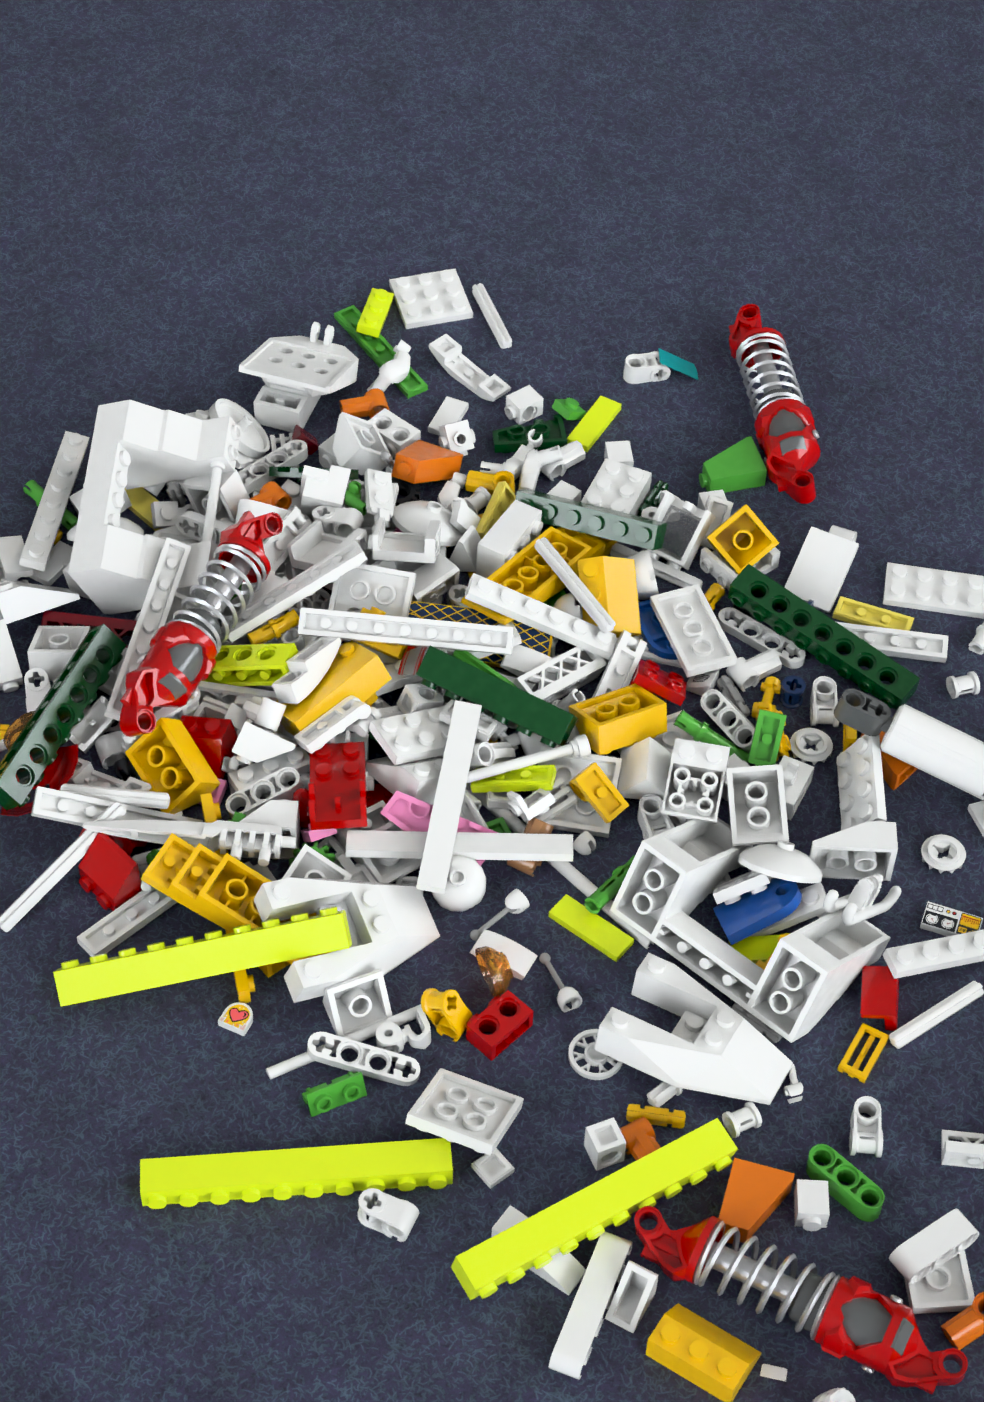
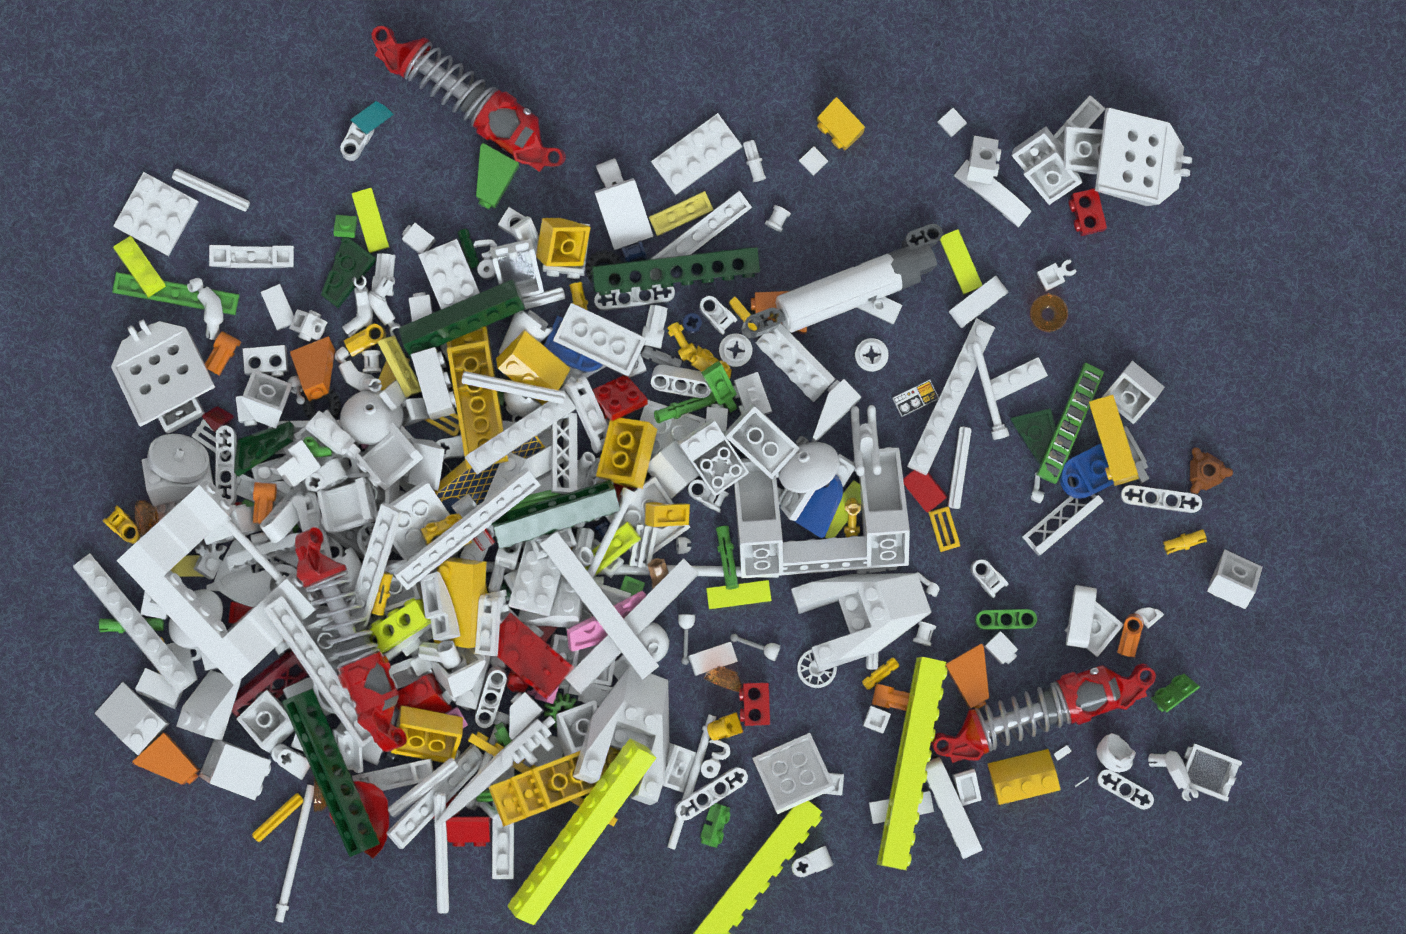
camera: 50 degrees left, 35 degrees up
(237, 1018) = (621, 834): tile -> none
(523, 405) = (316, 253): white brick -> none
(531, 806) = (641, 560): white bracket -> none

